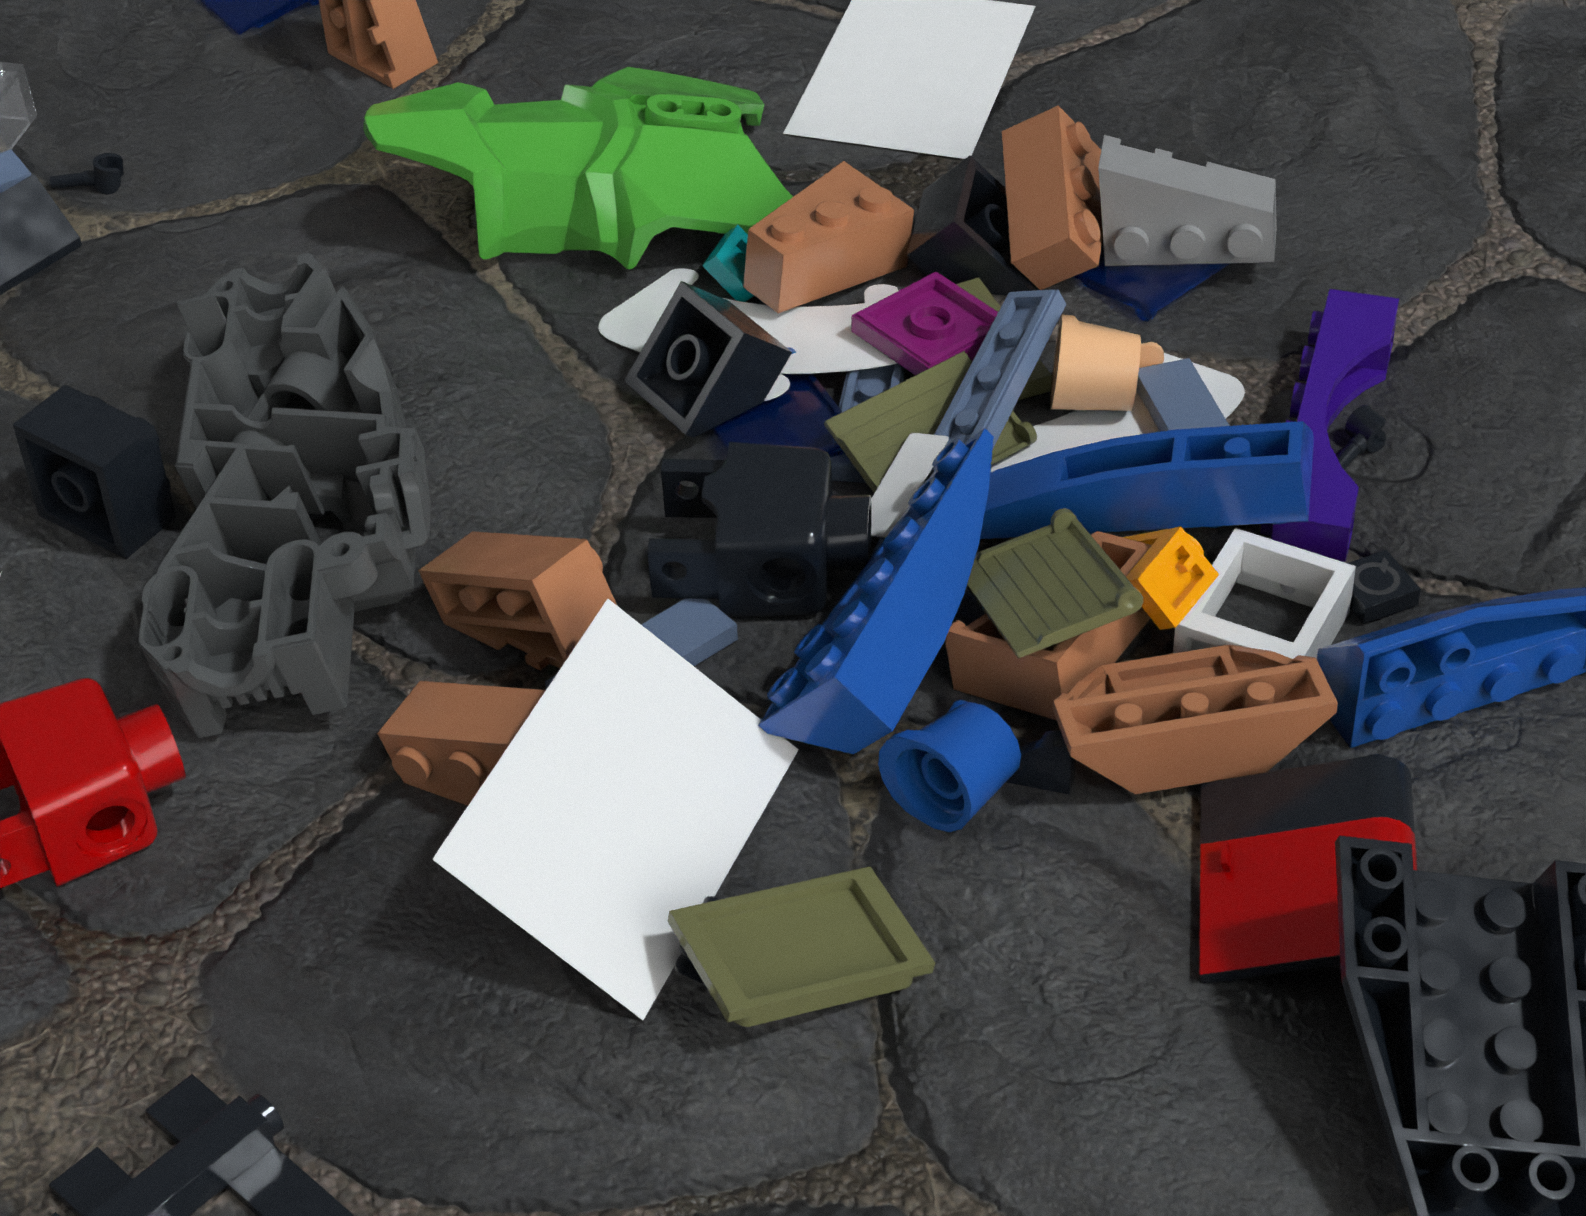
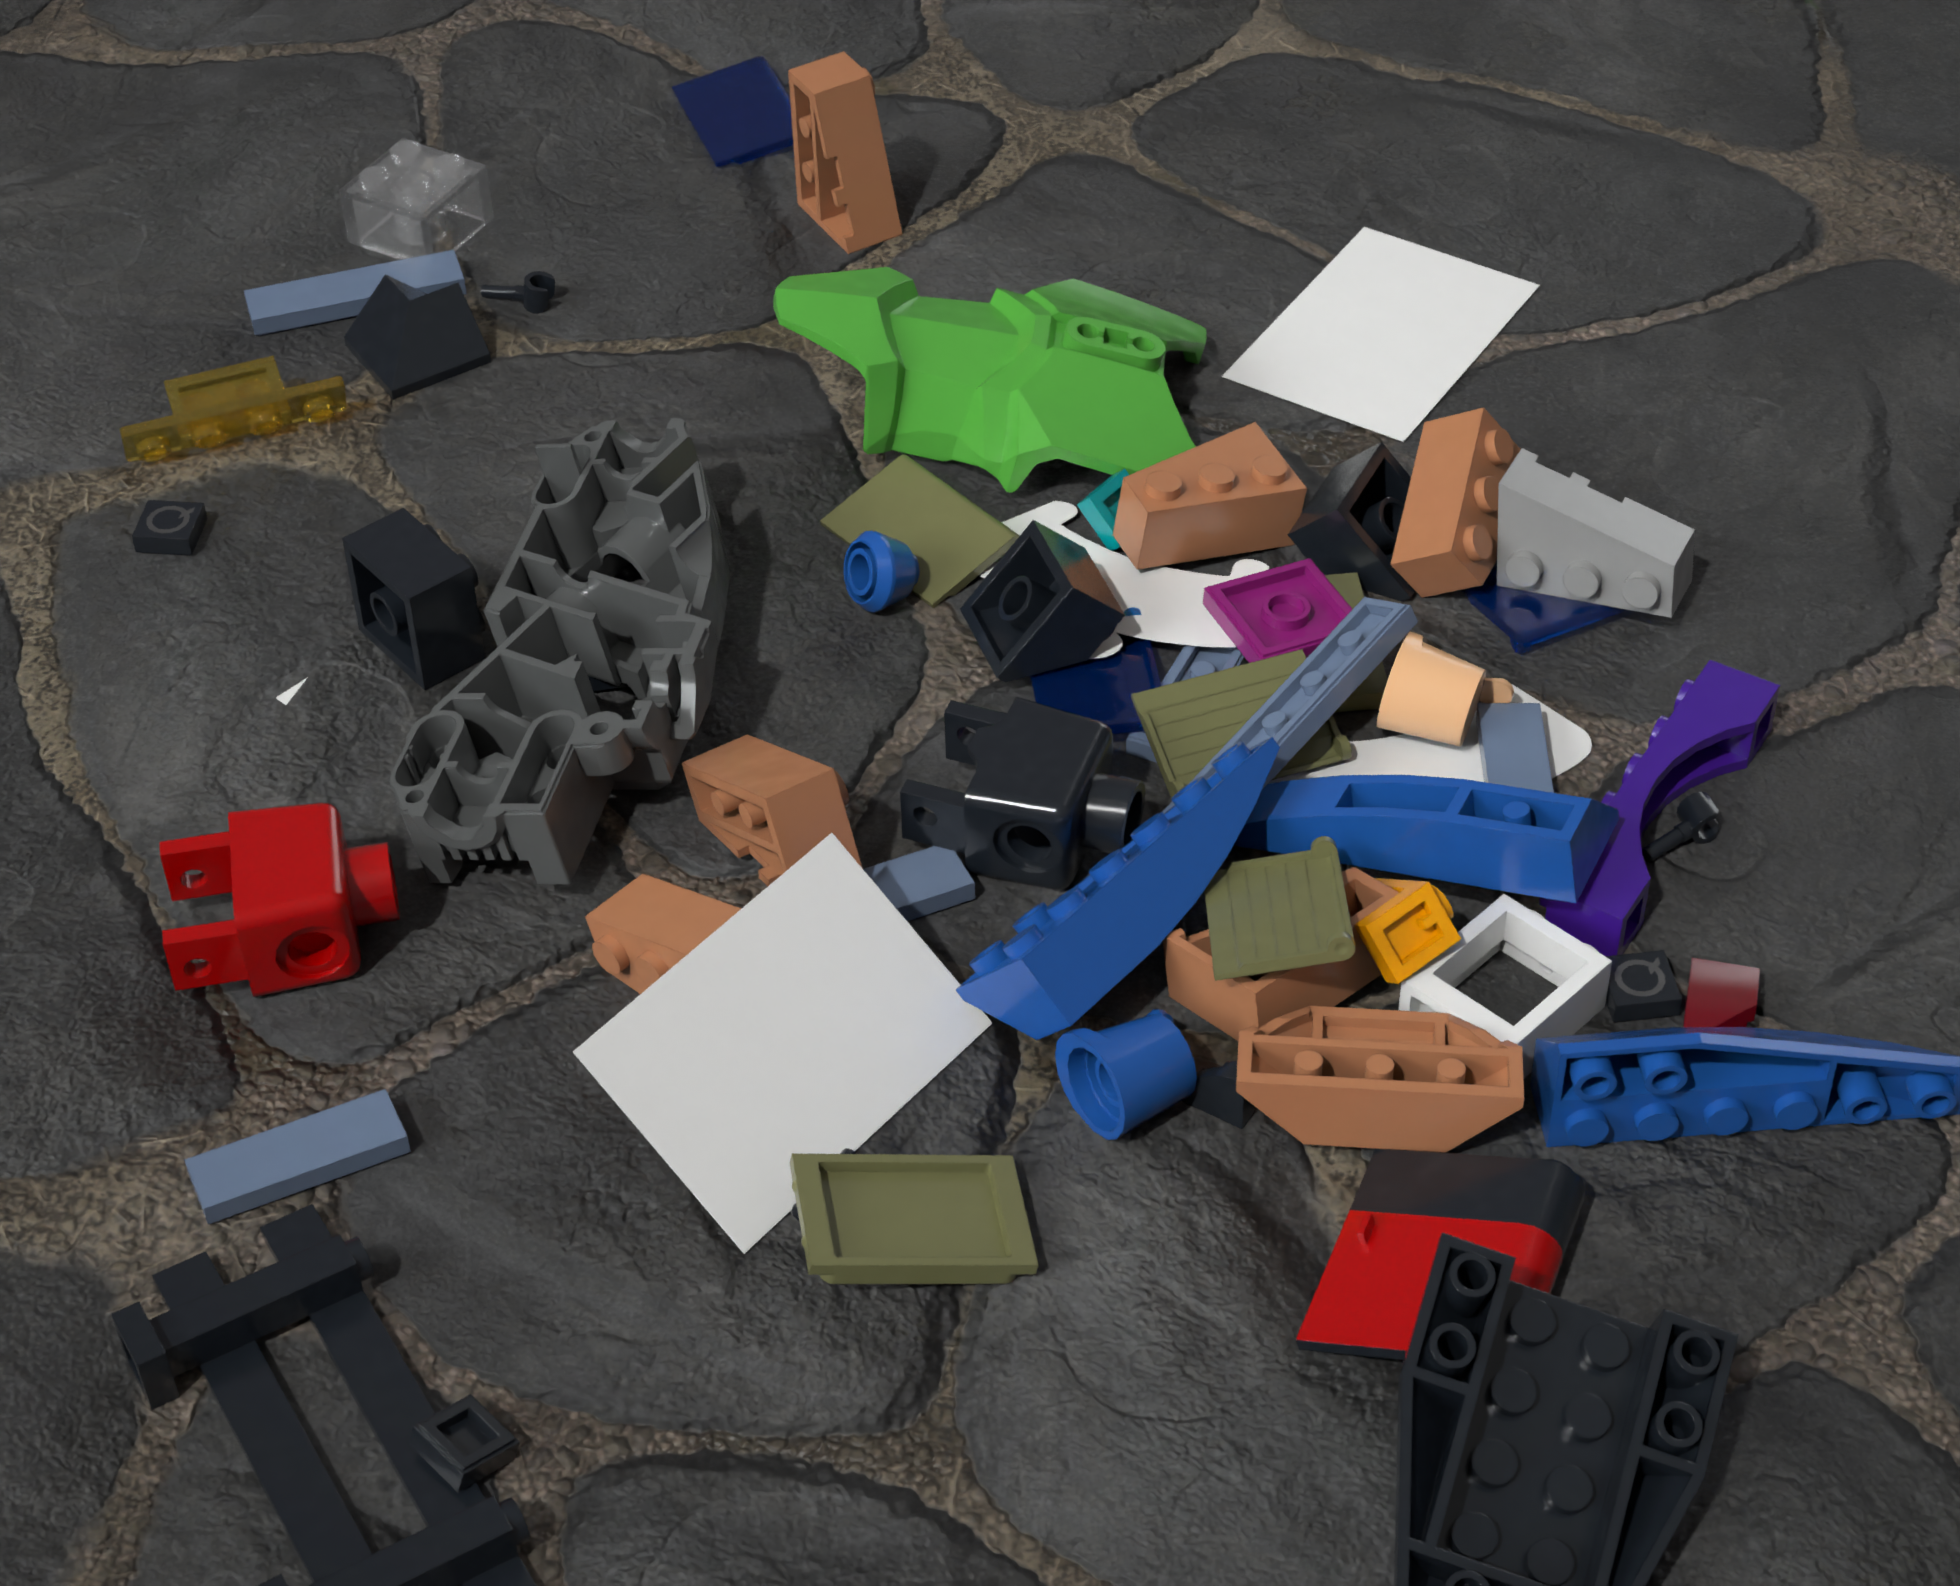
camera: 15 degrees right, 0 degrees up
(158, 1031) = (297, 1156): none -> sand blue tile
(537, 360) = (879, 571): none -> blue cone
(559, 319) = (937, 523): none -> olive piece
(903, 479) = (1190, 767): white sticker -> none
(1451, 577) = (1720, 994): none -> dark red slope

